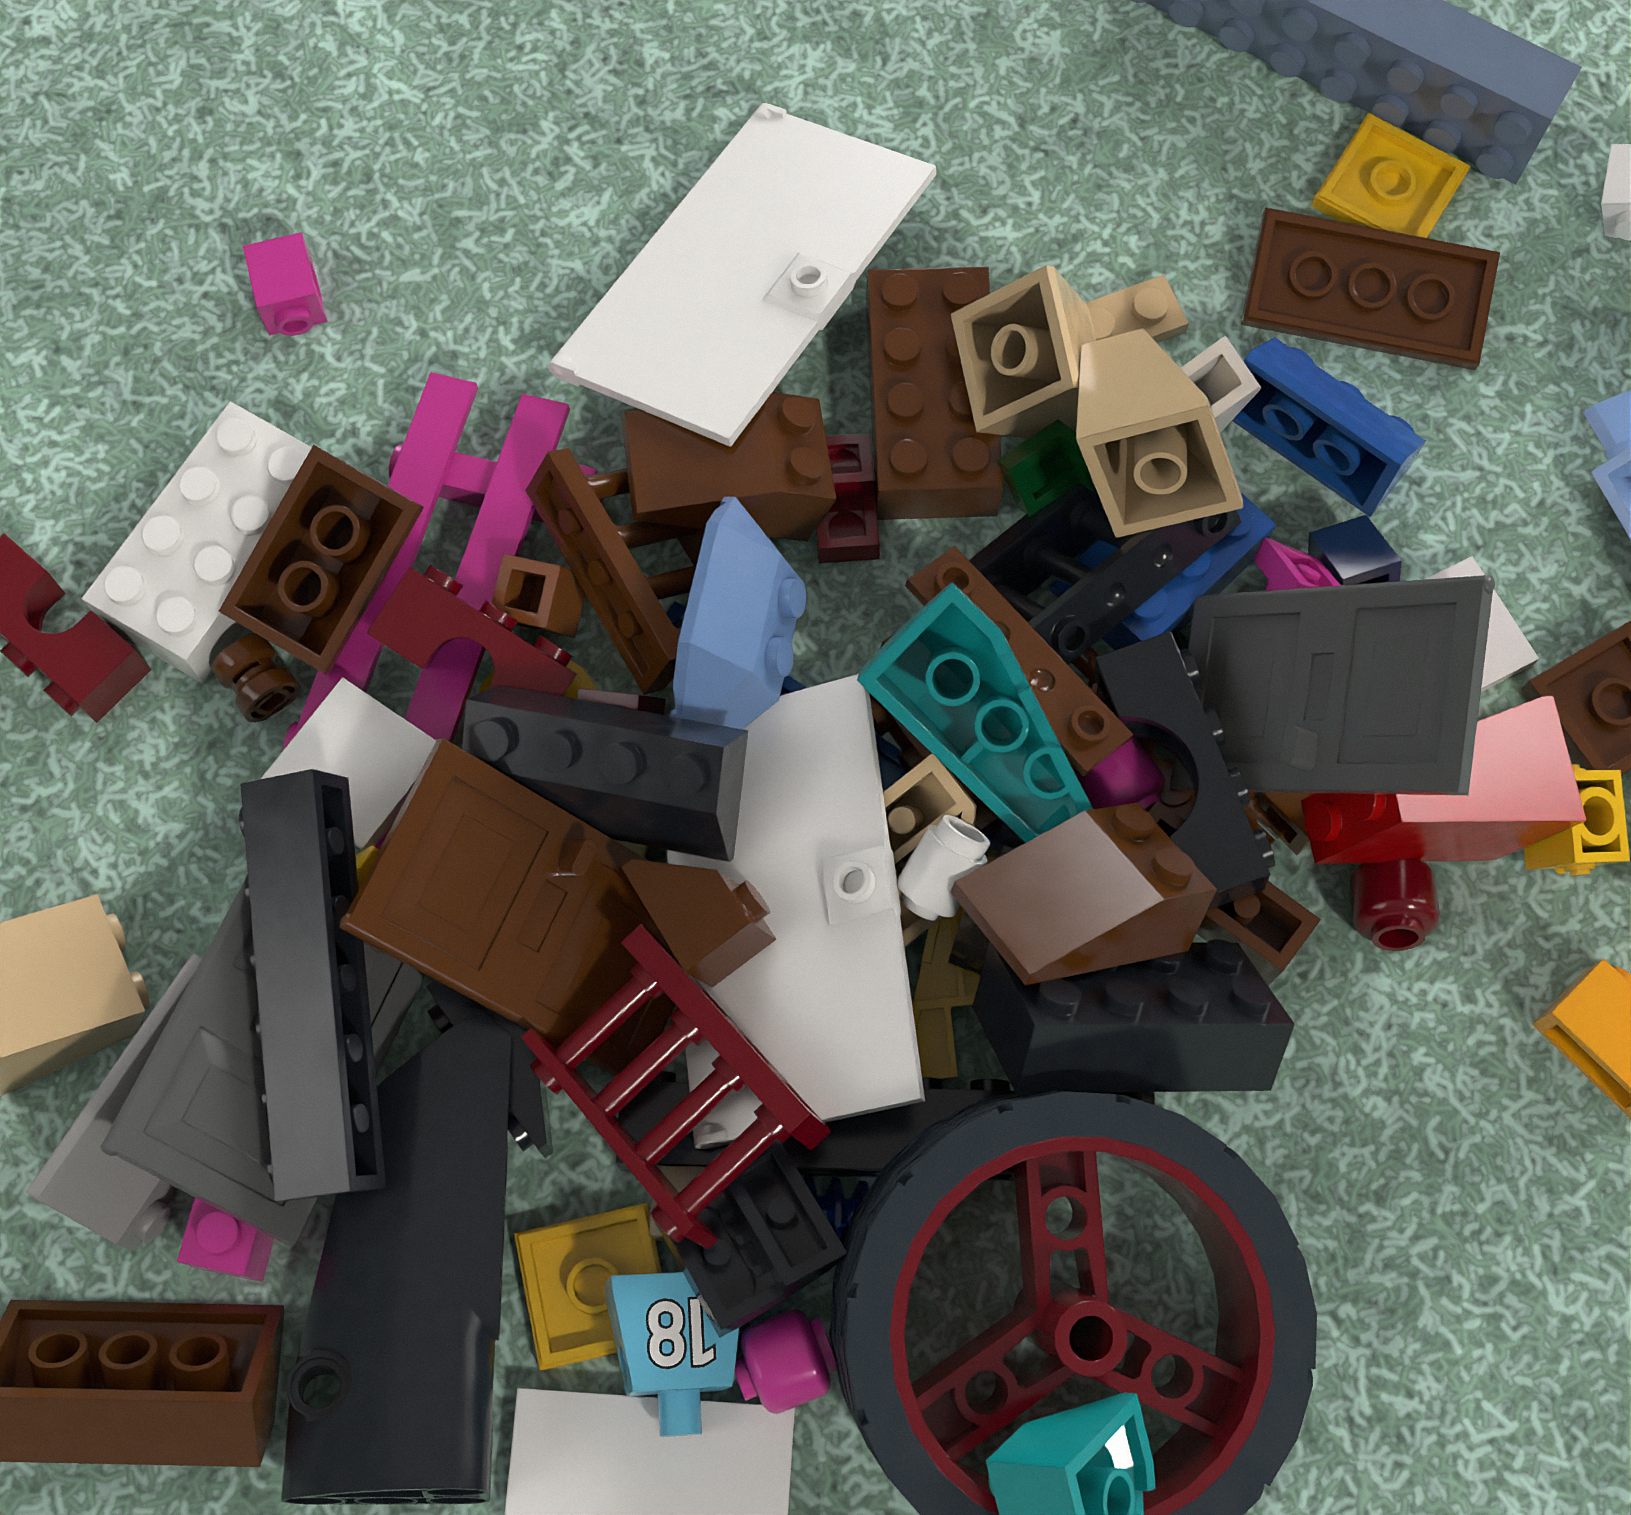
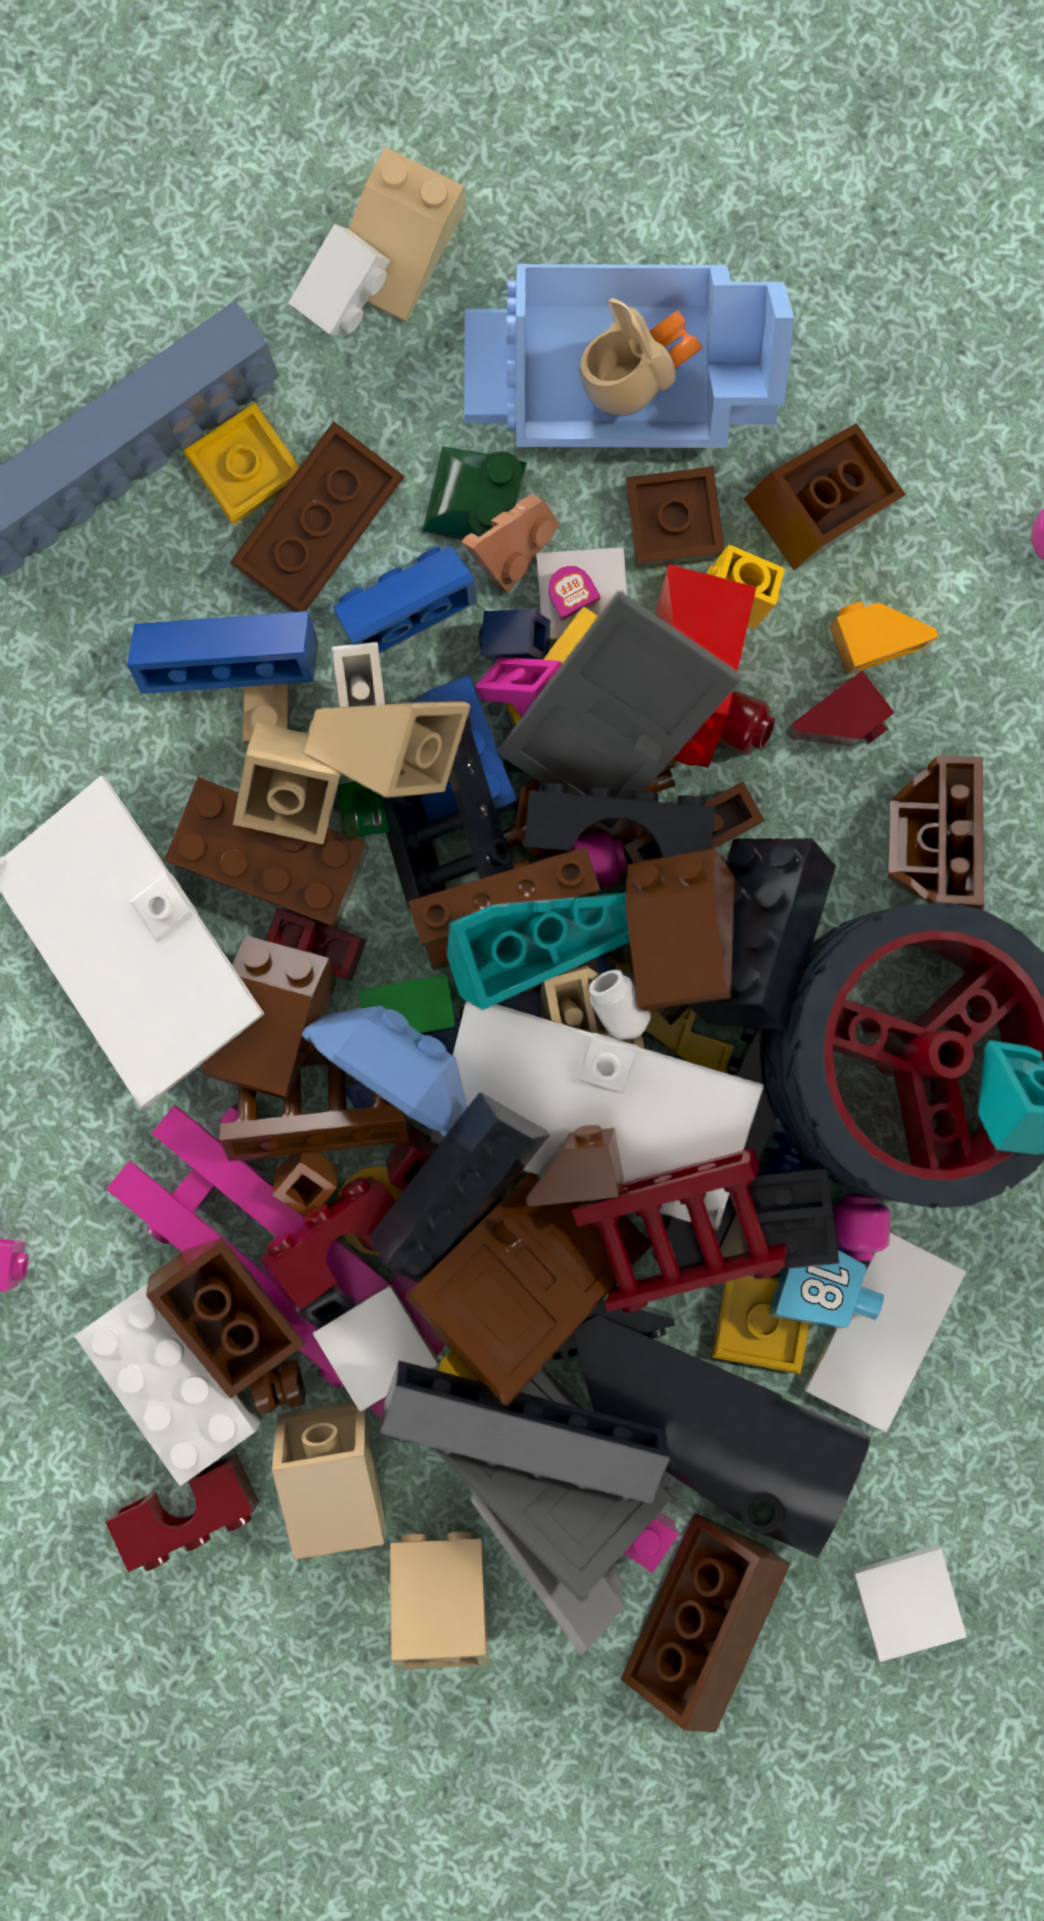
camera: 65 degrees left, 15 degrees up
(148, 785) = (327, 1480): none -> tan slope
(385, 675) = (327, 1306): none -> black slope
(826, 636) = (422, 1002): none -> green panel
(1154, 241) = (223, 652): none -> blue brick
(1392, 1229) = (940, 833): none -> reddish brown wedge
(1471, 515) = (513, 541): none -> nougat wing
(1476, 1034) = (845, 715): none -> dark red slope
(1502, 461) = (472, 491): none -> dark green slope

